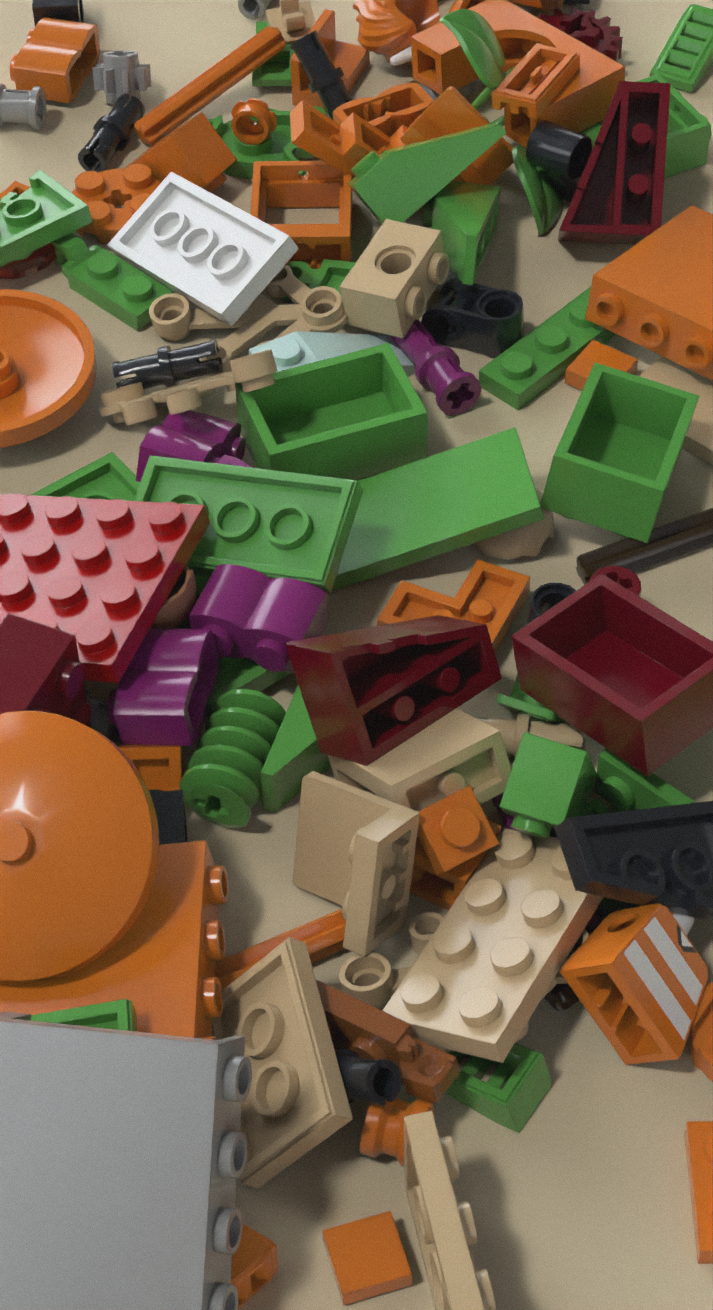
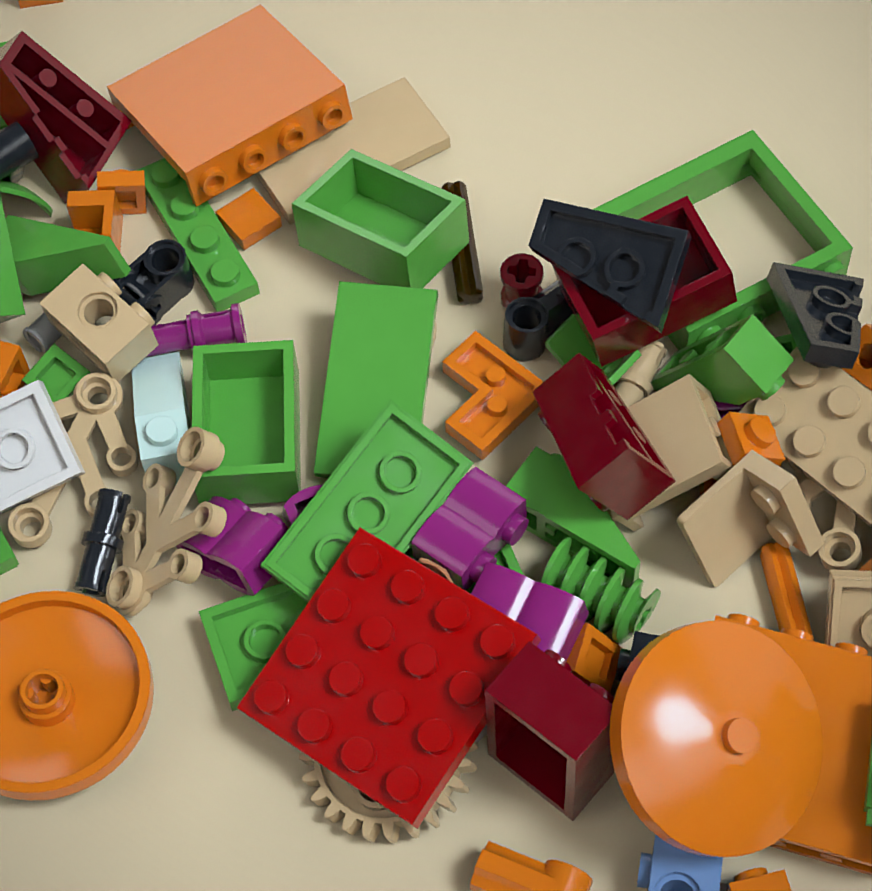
camera: 70 degrees left, 10 degrees up
(533, 268) = (96, 213): none -> orange panel
(576, 260) = (128, 188): none -> orange plate
(615, 610) = (615, 256): none -> black wing

